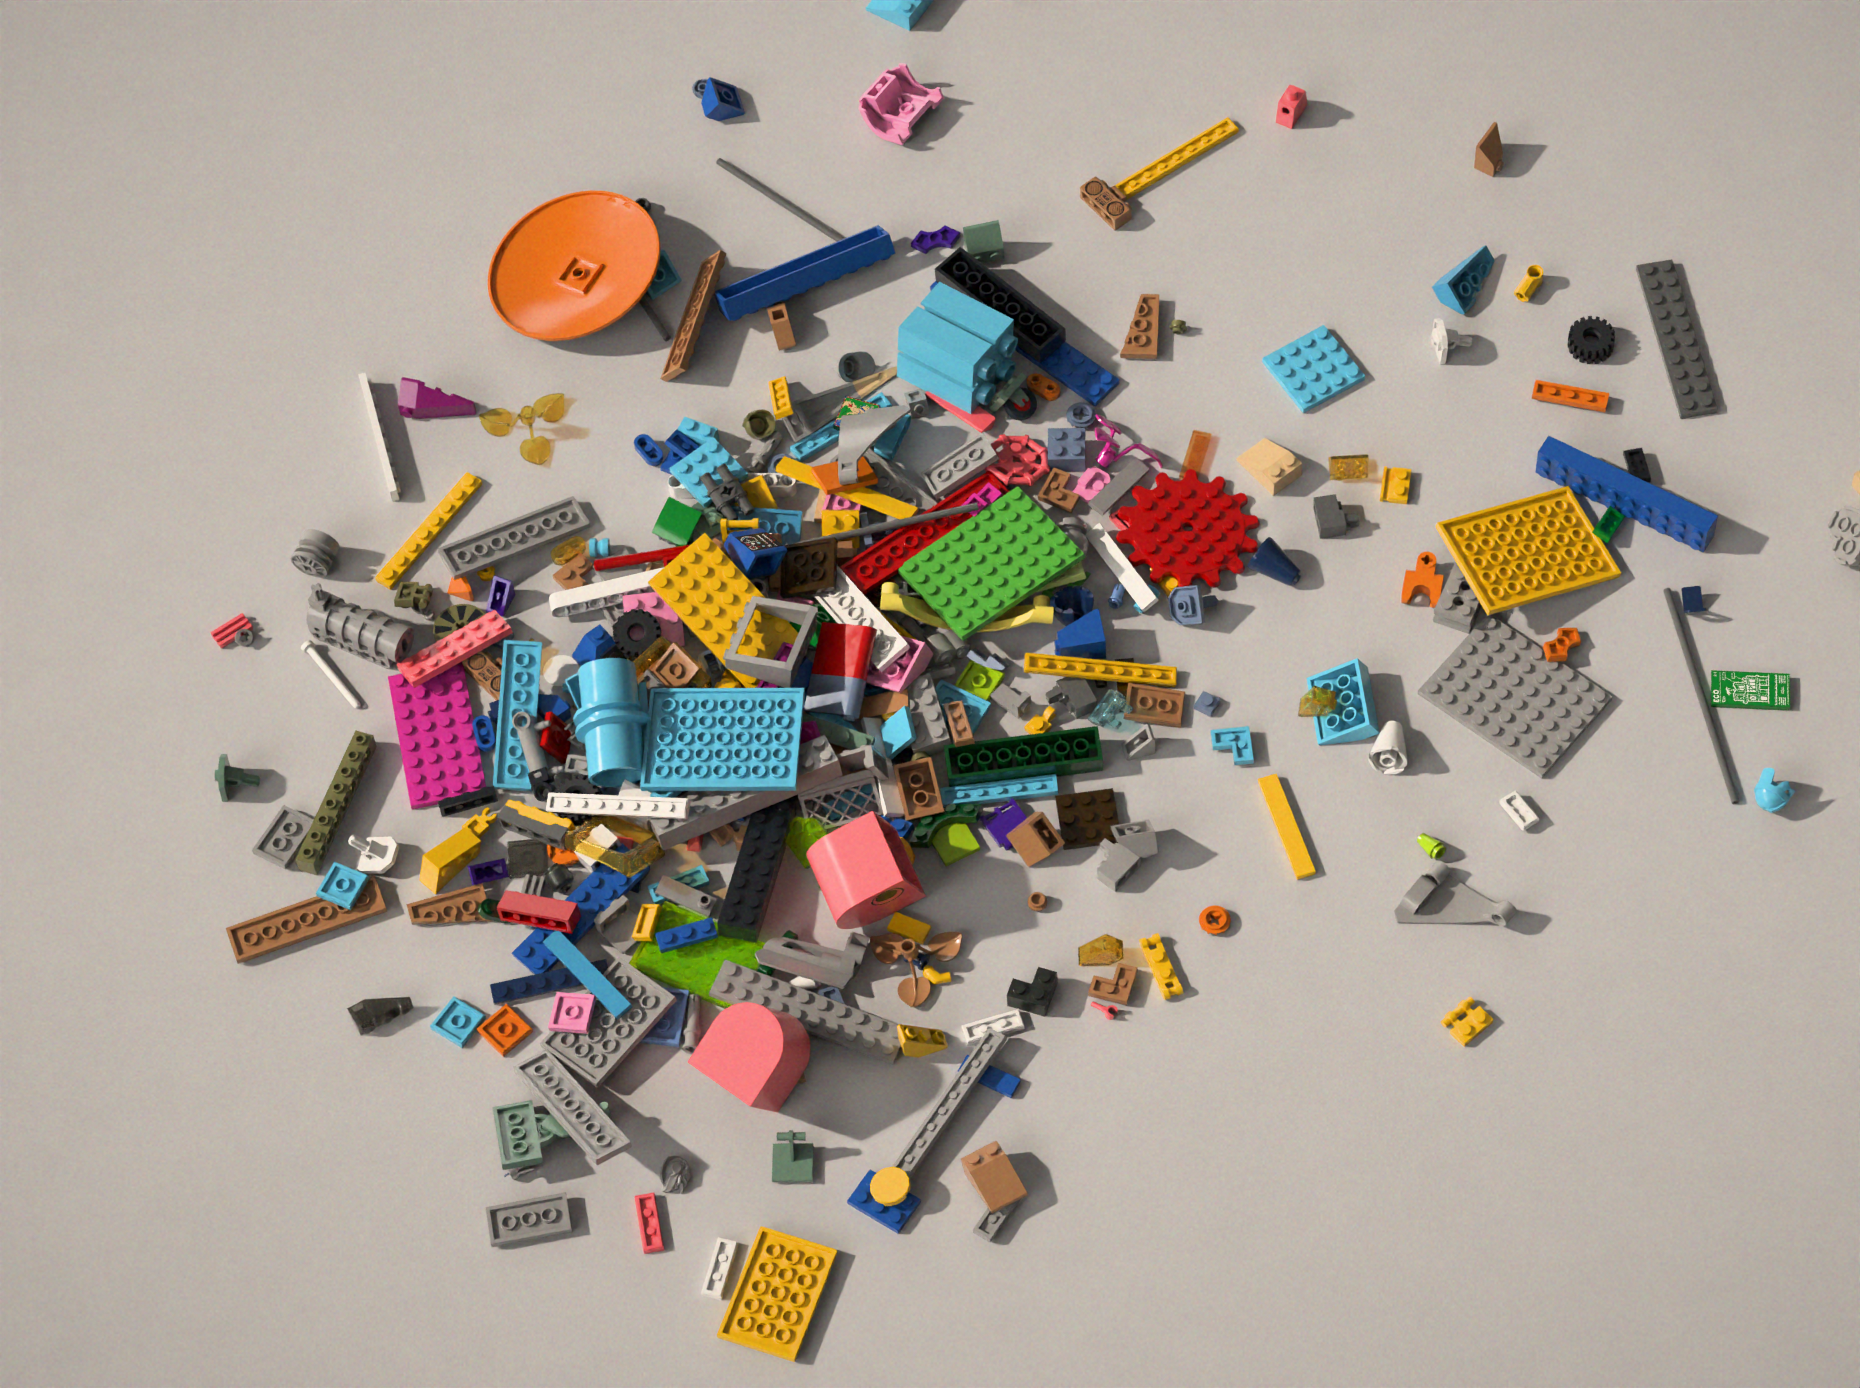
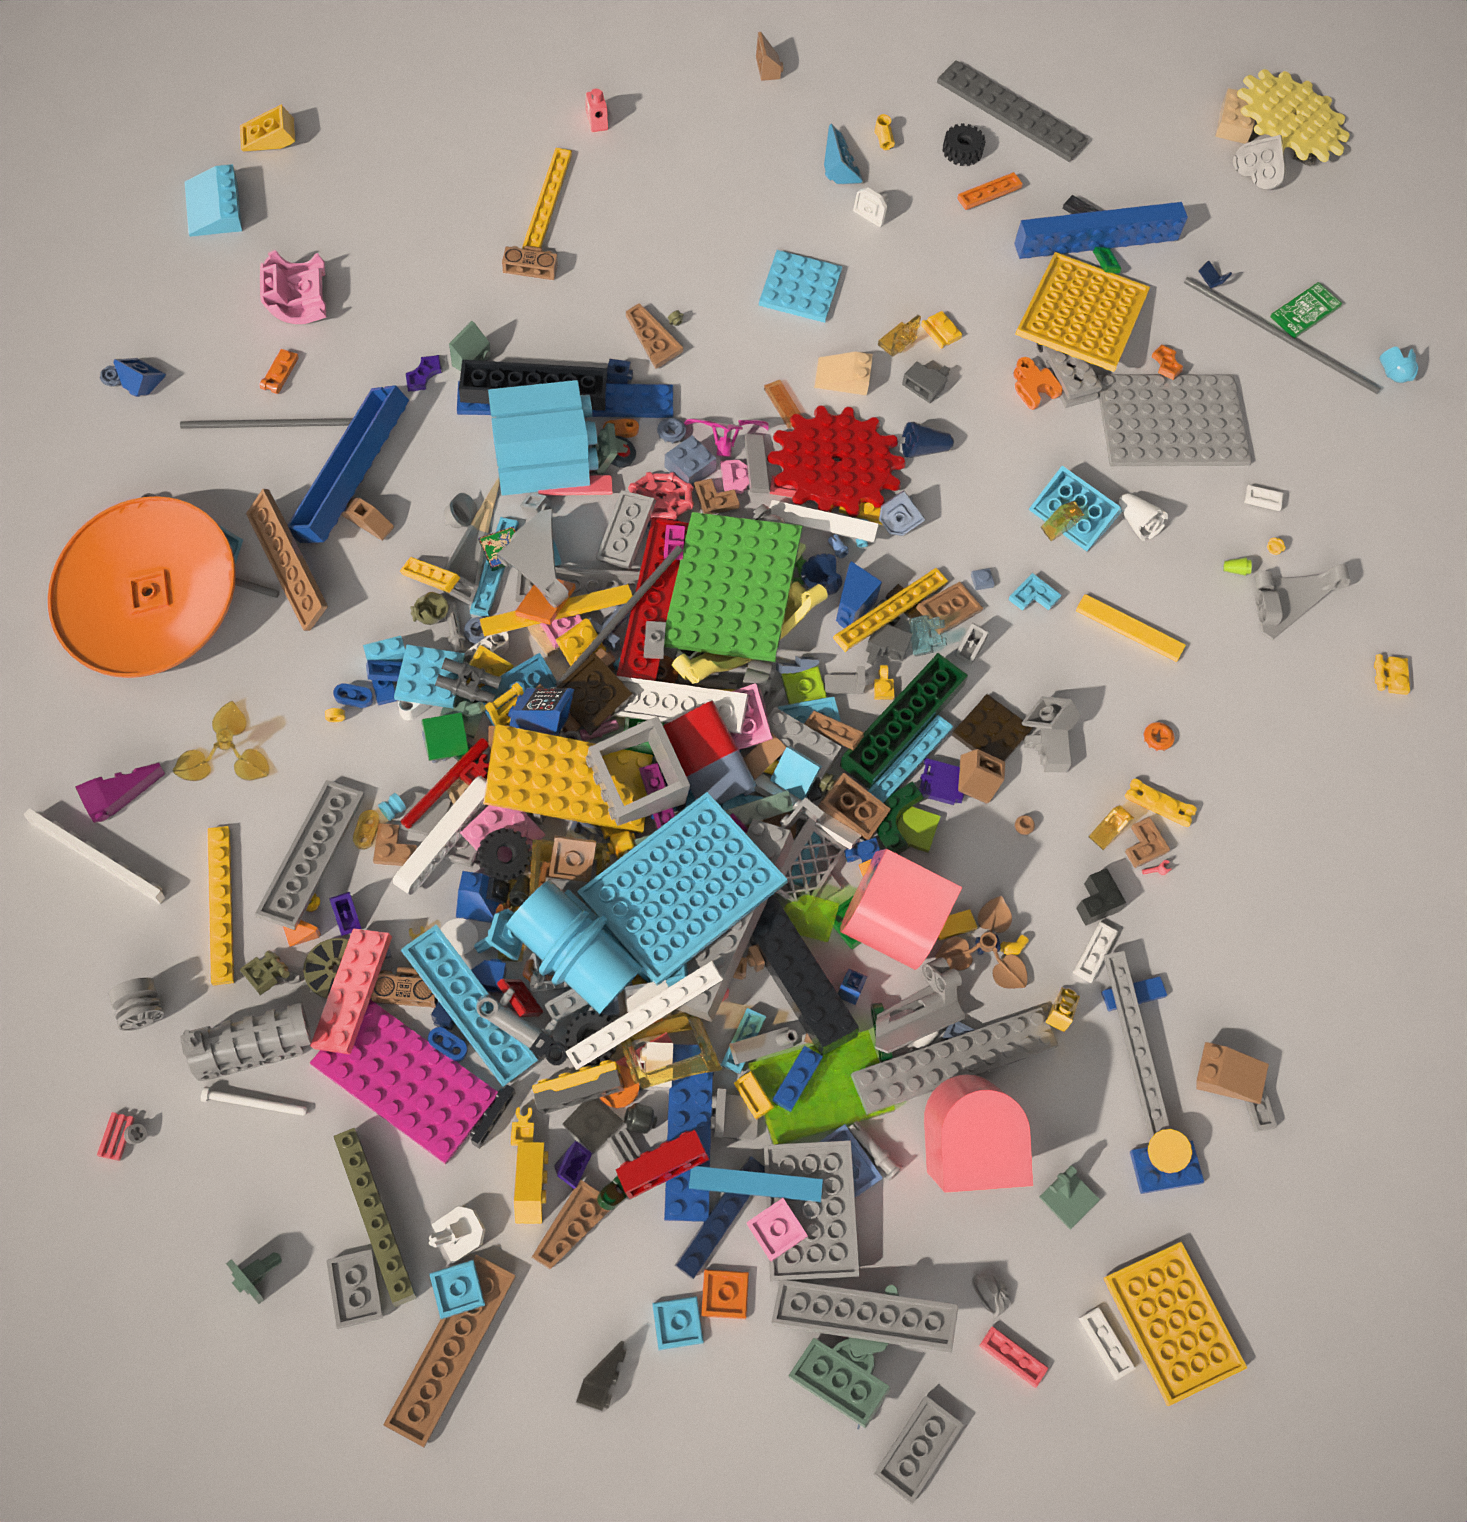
camera: 55 degrees left, 5 degrees up
(622, 454) = (335, 715): none -> yellow tile
(790, 908) = (852, 986): none -> blue slope
(828, 166) = (279, 371): none -> orange plate
(892, 561) = (654, 639): none -> light grey plate
(1083, 334) = (619, 372): none -> dark blue brick
(1484, 854) = (1276, 545): none -> yellow plate

